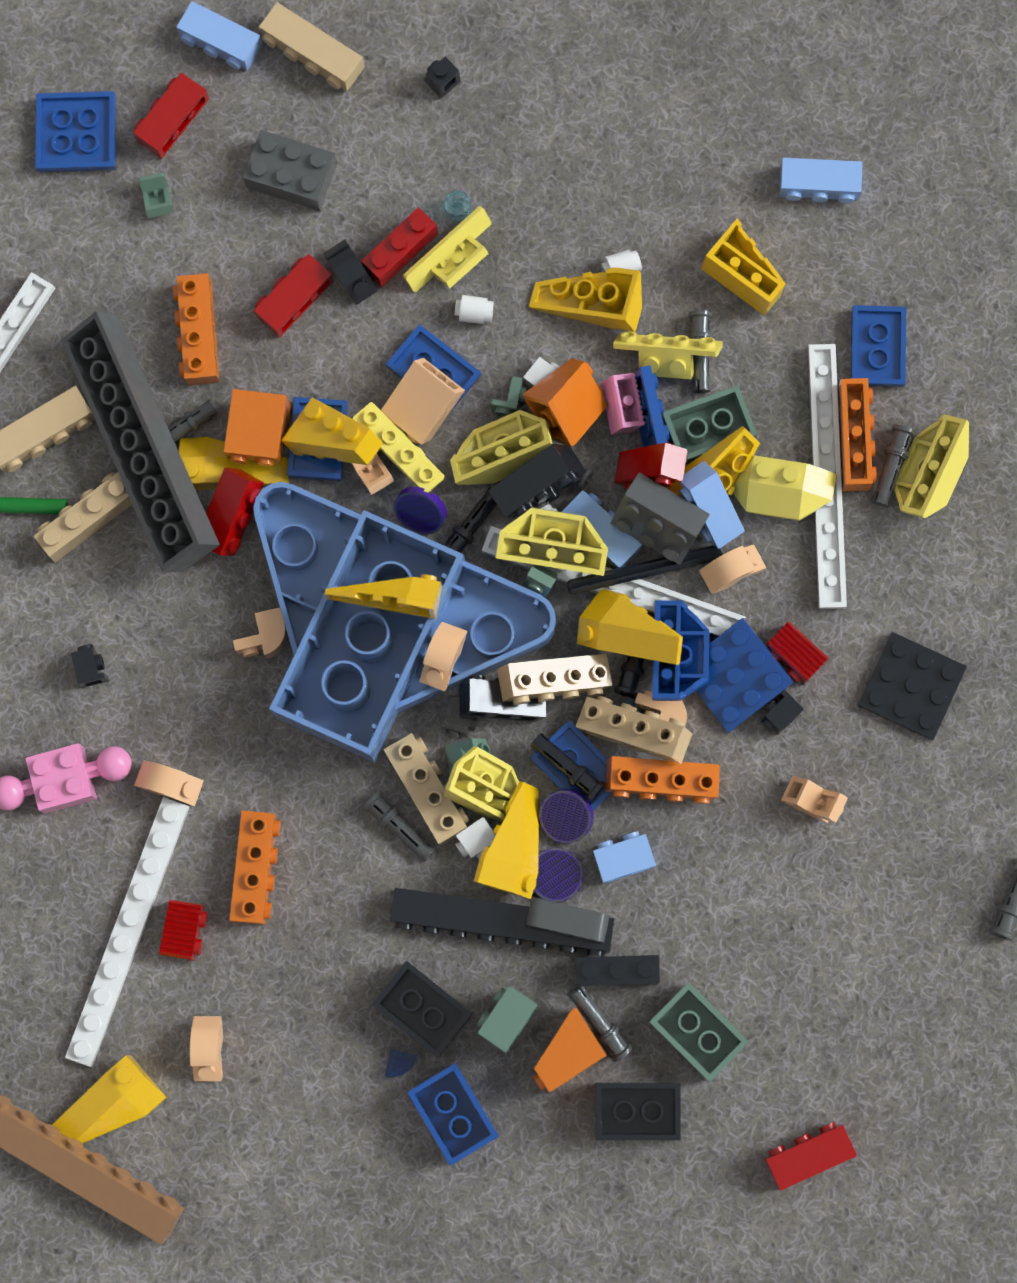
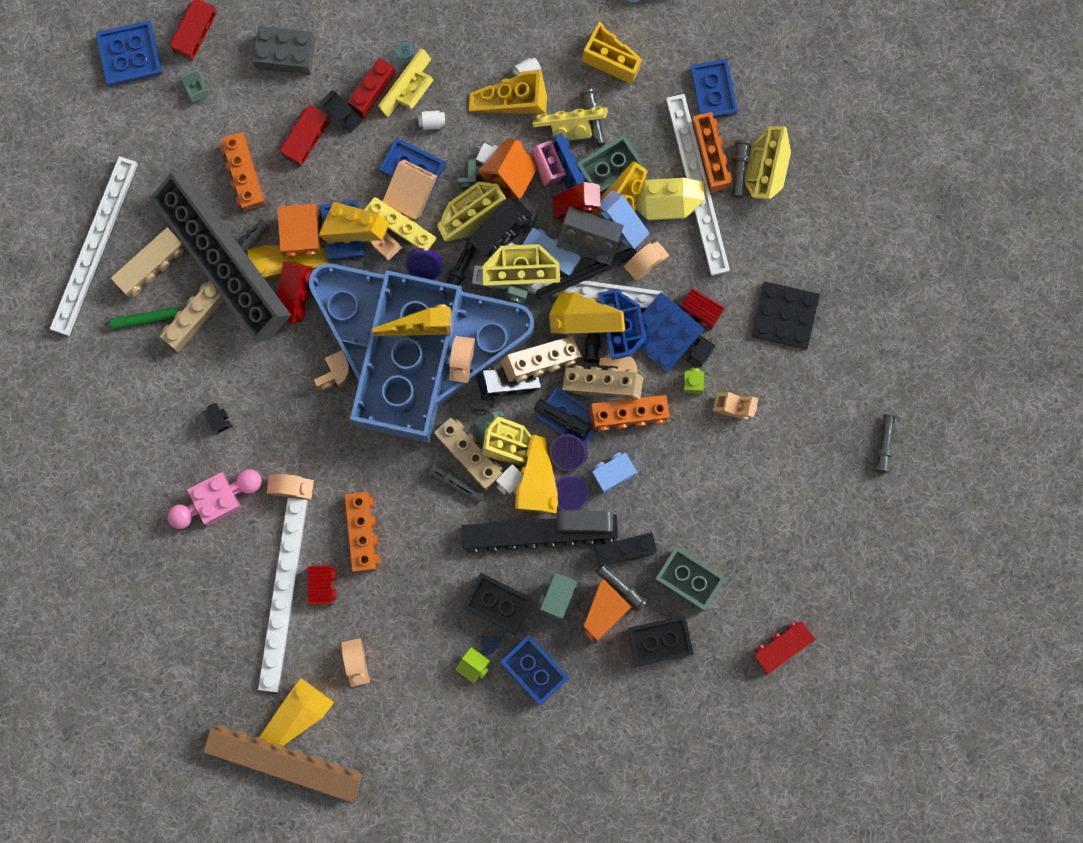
camera: 15 degrees left, 0 degrees up
(369, 1089) = (473, 665): none -> lime brick
(762, 753) = (693, 381): none -> lime brick

